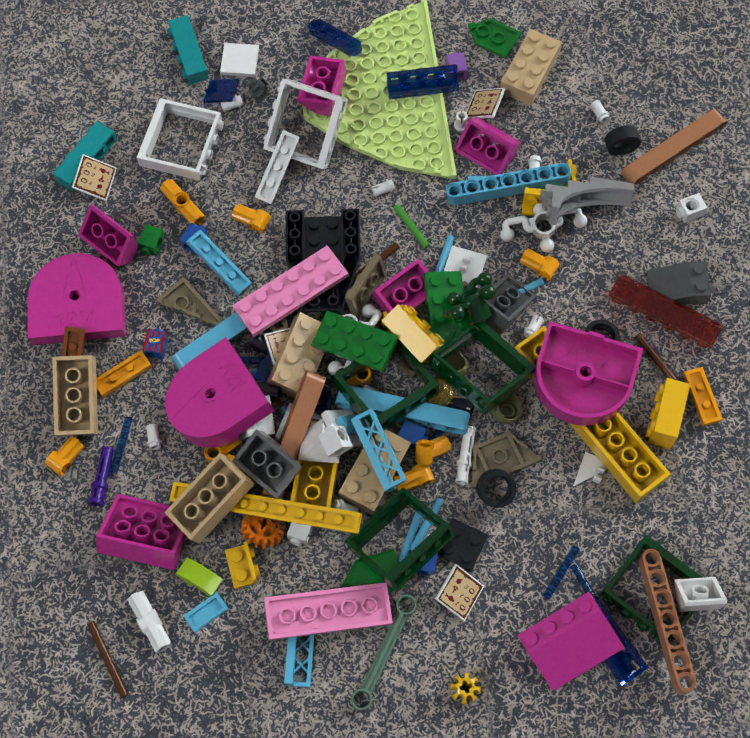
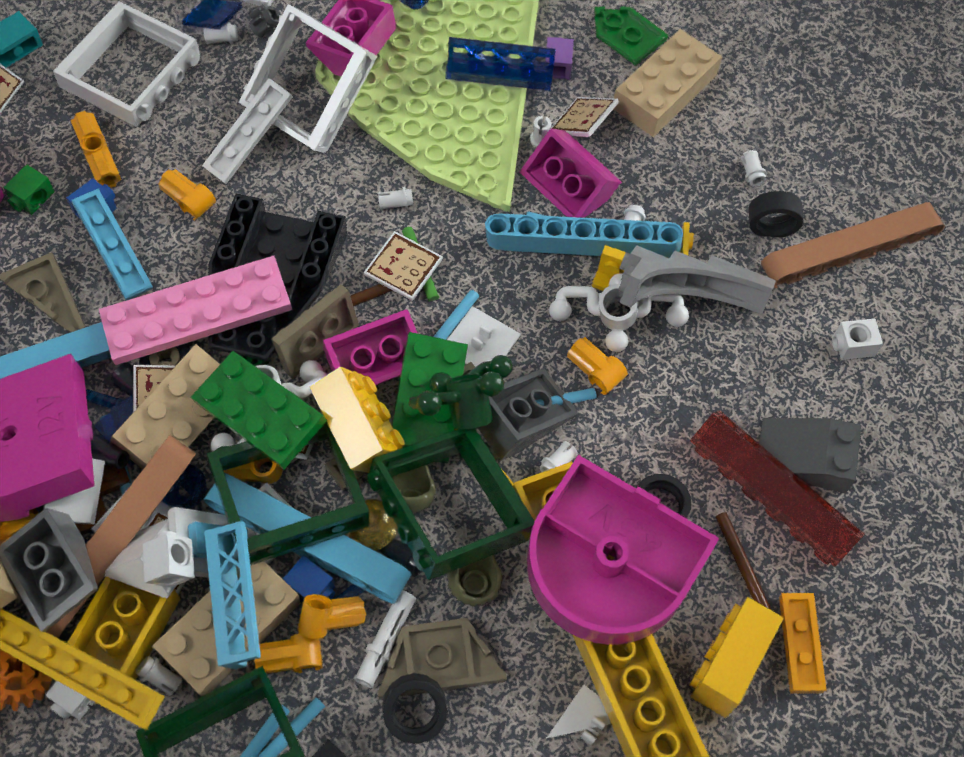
camera: 10 degrees right, 5 degrees down
(403, 230) = (403, 265): none -> piece

